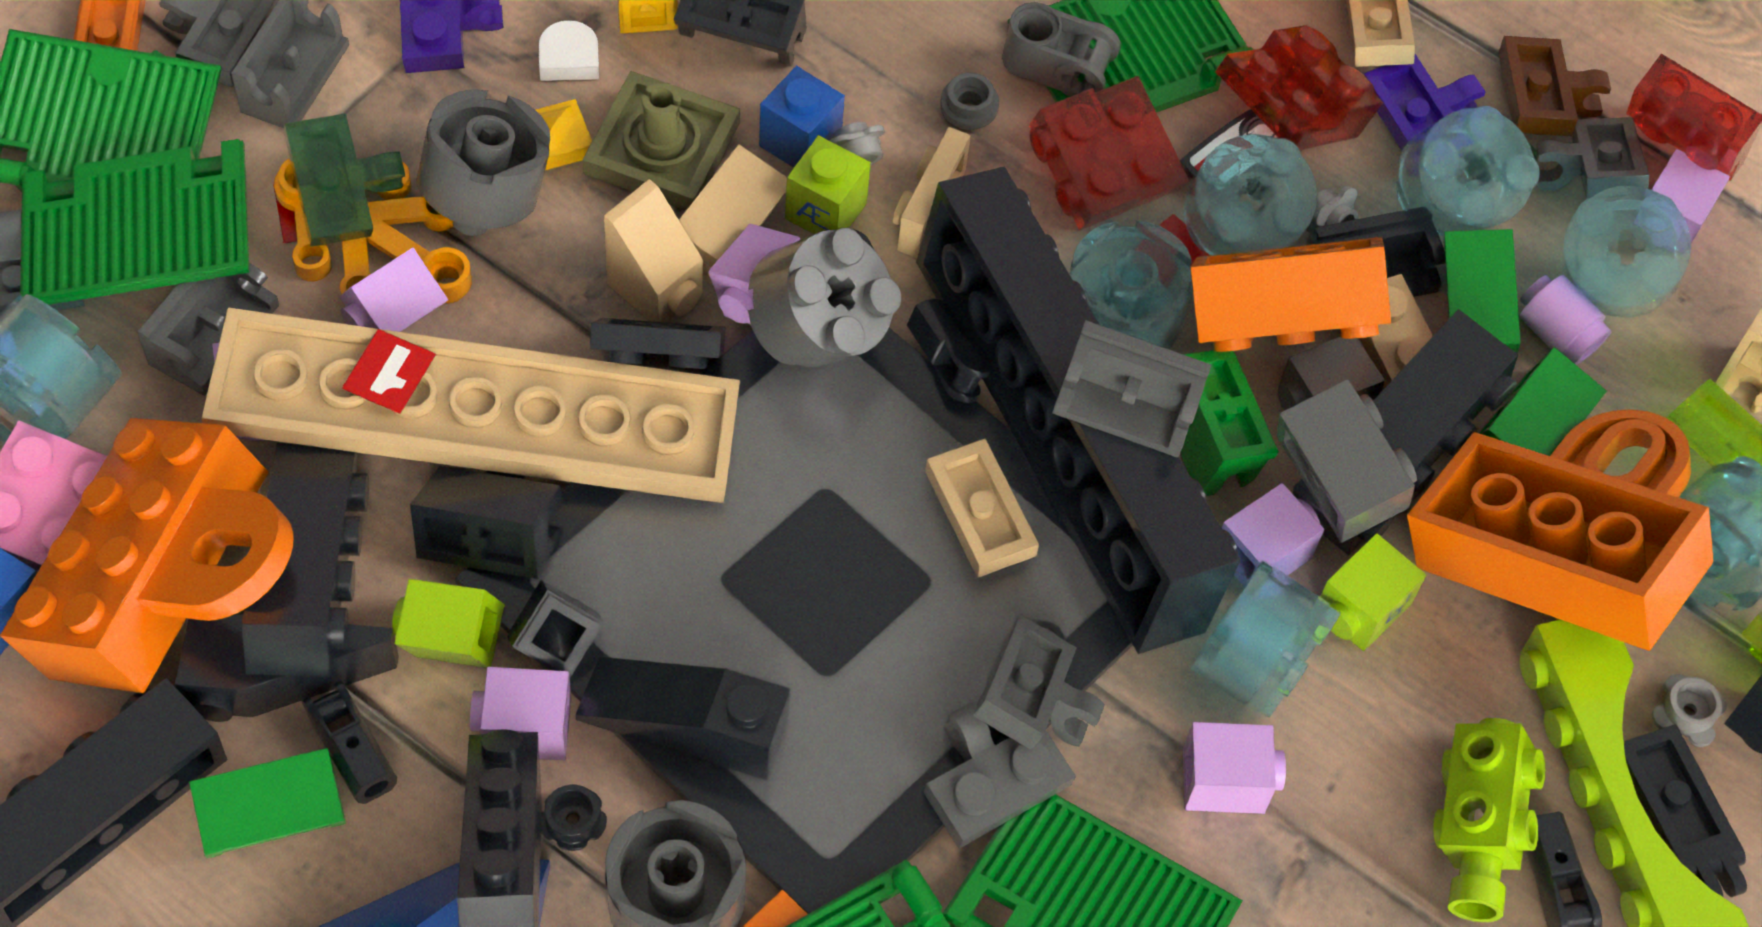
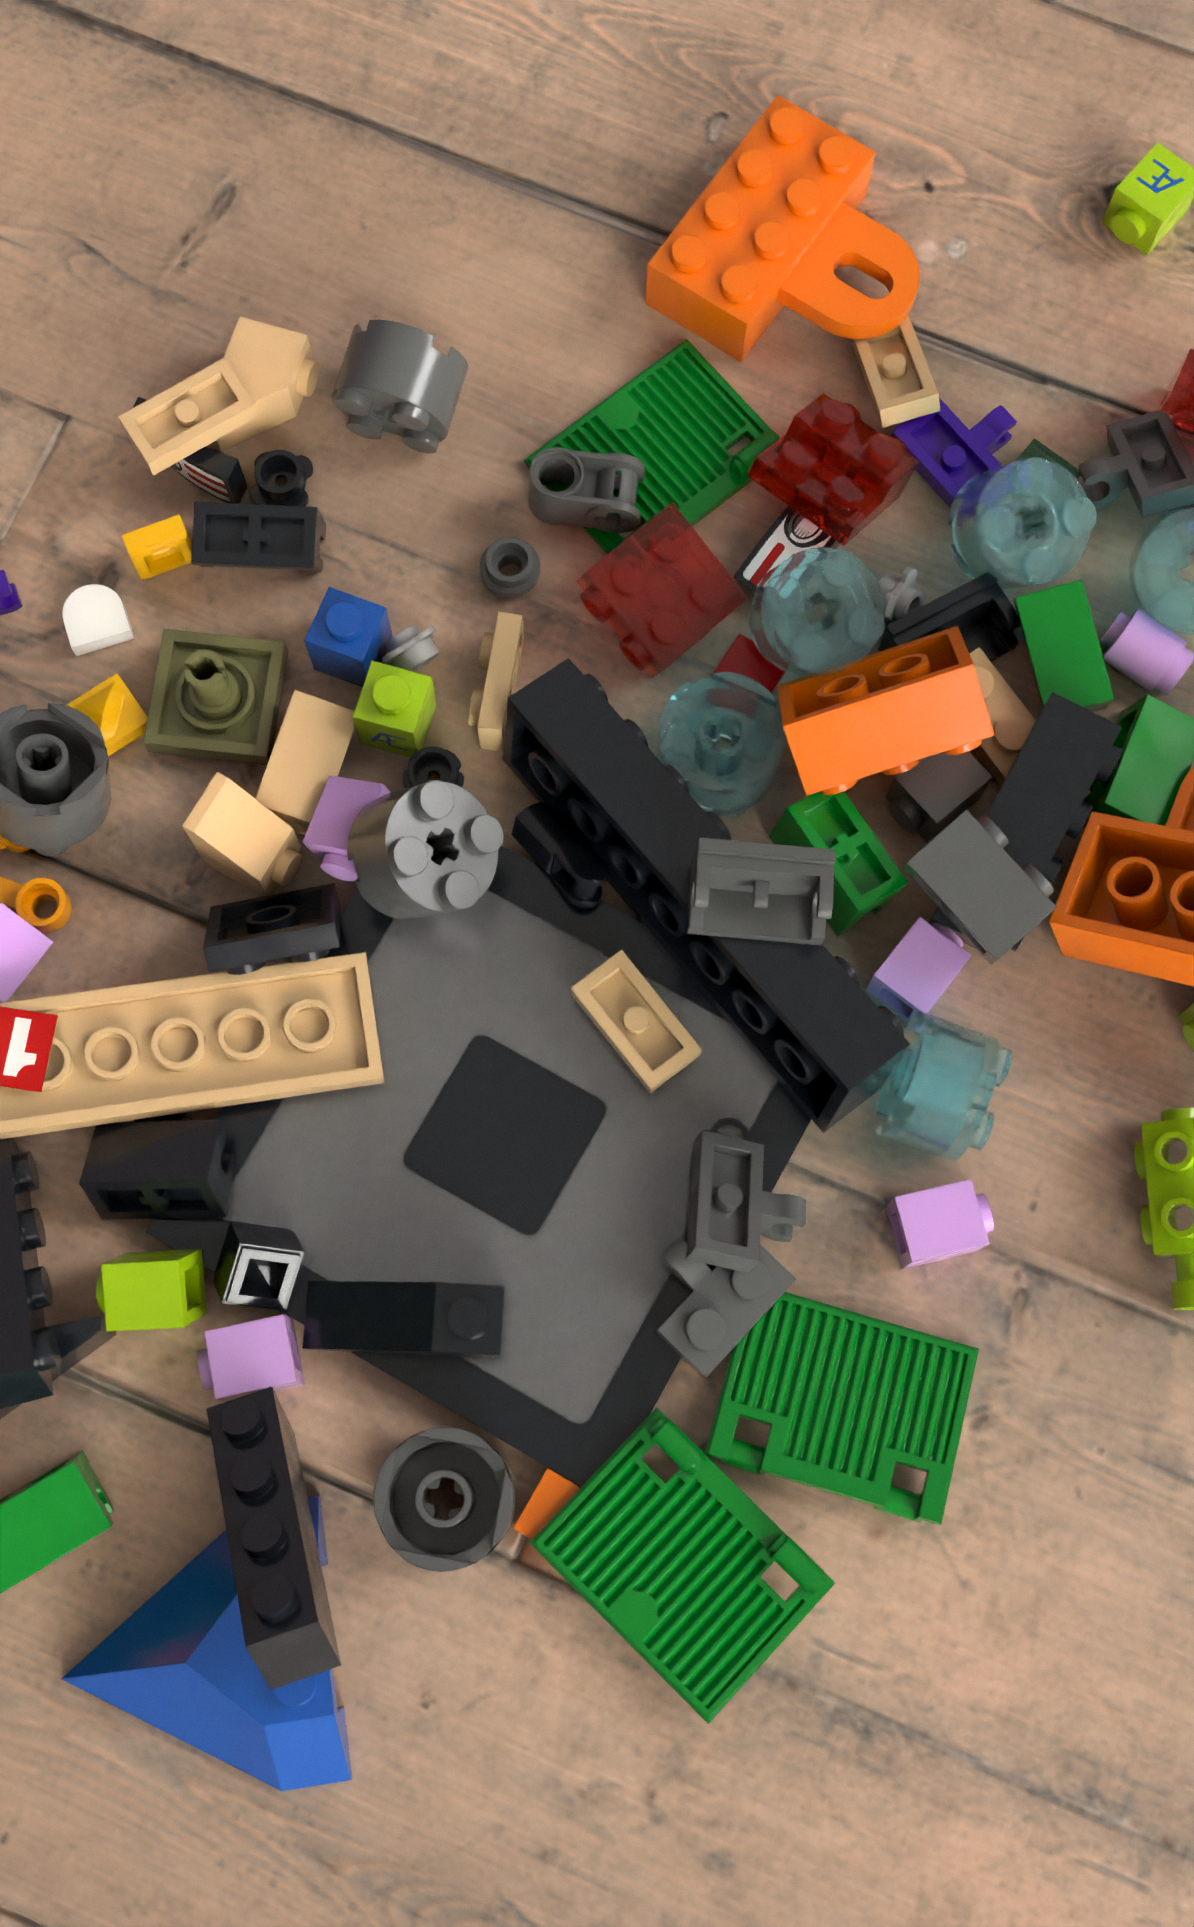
camera: 10 degrees left, 15 degrees up
(352, 746) = (99, 1438): black bar -> none
(578, 801) = (347, 1452): black plate -> none
(1372, 591) = (1027, 1002): lime brick -> none
(1541, 90) = (1071, 401): reddish brown plate -> none

